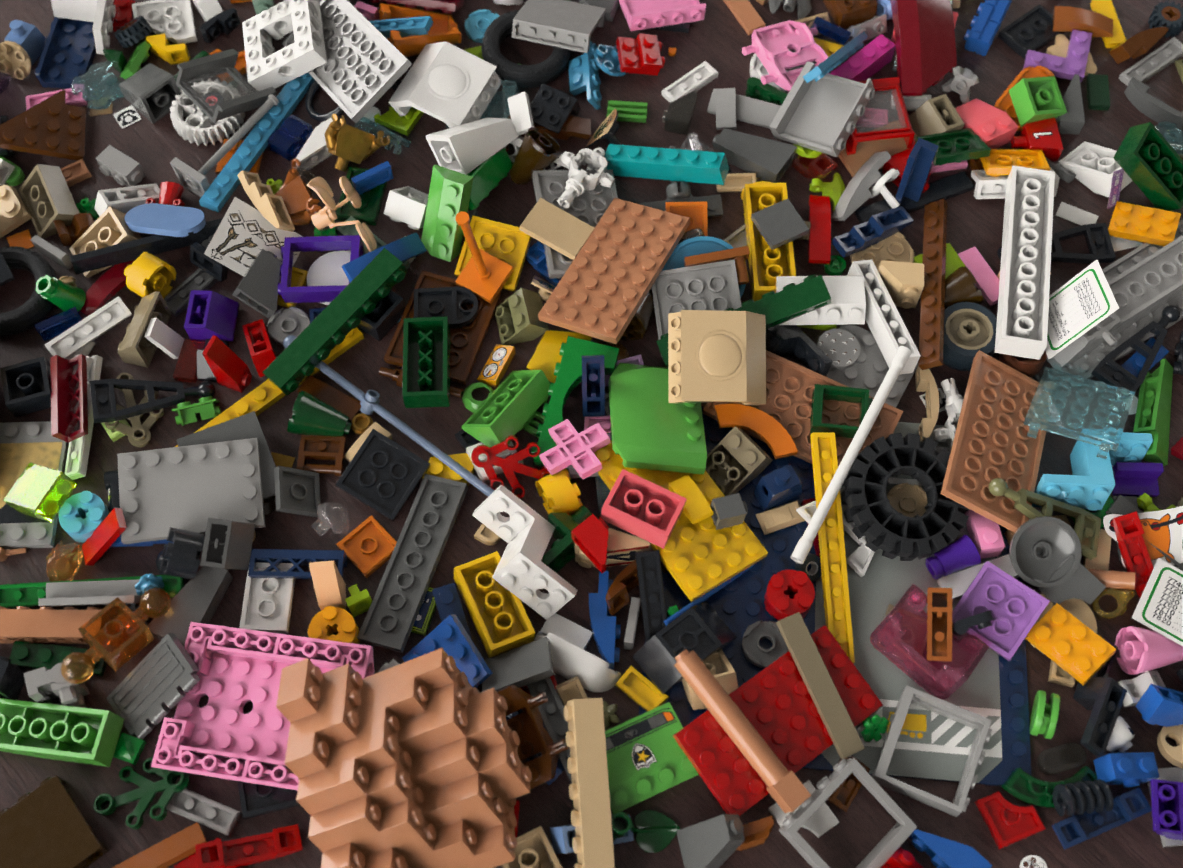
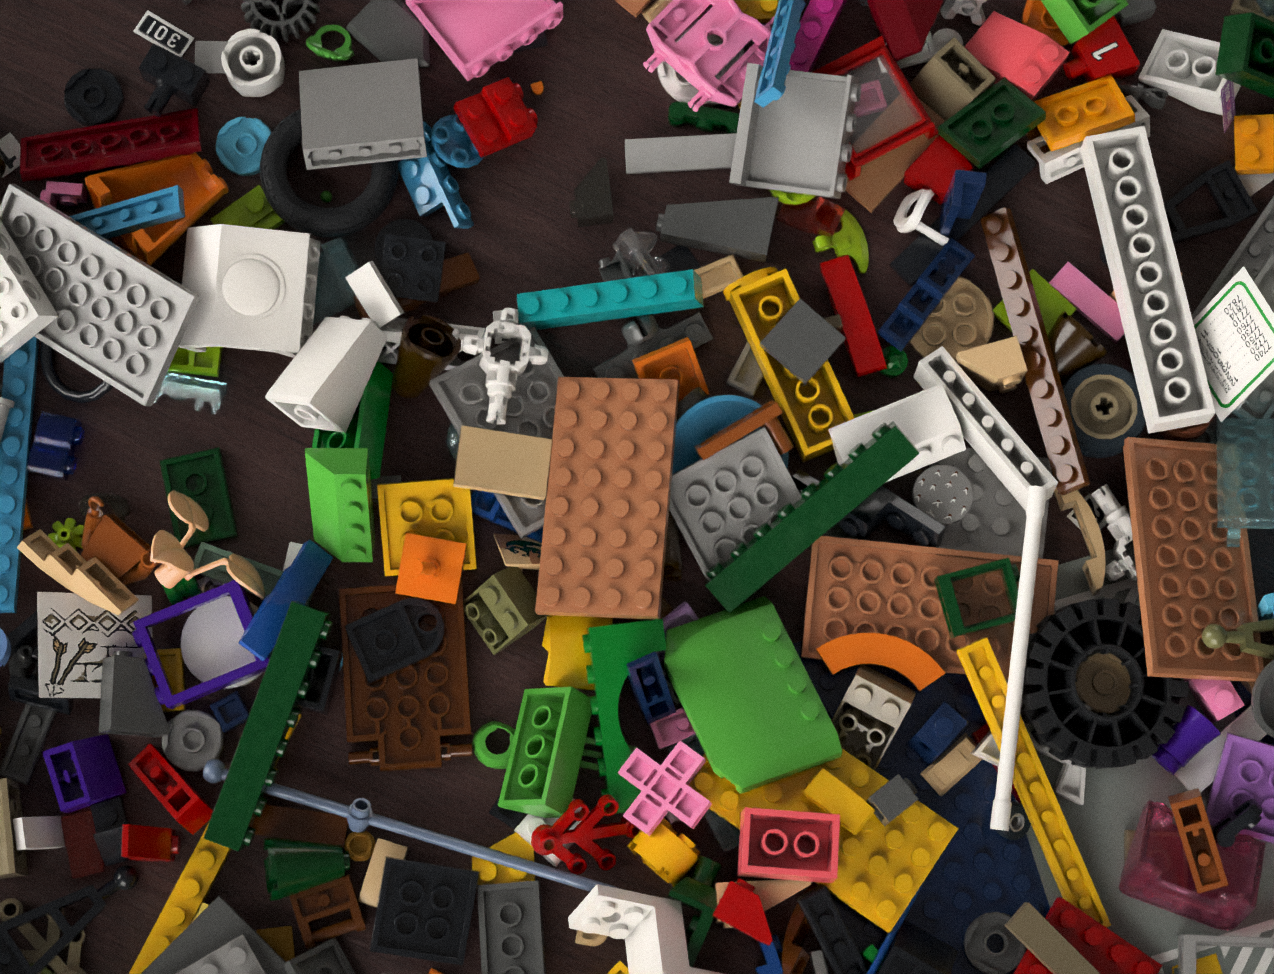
camera: 25 degrees left, 15 degrees up
(188, 411) = (119, 920): bright green hinge -> none
(315, 148) = (105, 436): white slope -> none
(351, 143) = (153, 430): pearl gold torso -> none
(372, 177) = (206, 473): blue tile -> none
(407, 206) = (278, 493): white slope -> none
(426, 362) = (413, 733): dark green brick -> none
(497, 365) = (499, 689): slope -> none
(607, 130) = (499, 266): shield -> none
(628, 109) = (509, 207): bright green tile -> none
(690, 82) = (584, 135): white tile -> none
(717, 357) = (802, 597): tan panel -> none
(725, 108) = (654, 166): light grey tile -> none
(789, 583) = (1020, 879): red brick -> none
(858, 188) = (882, 236): light grey slope -> none
(1075, 214) = (1186, 155): white sticker -> none

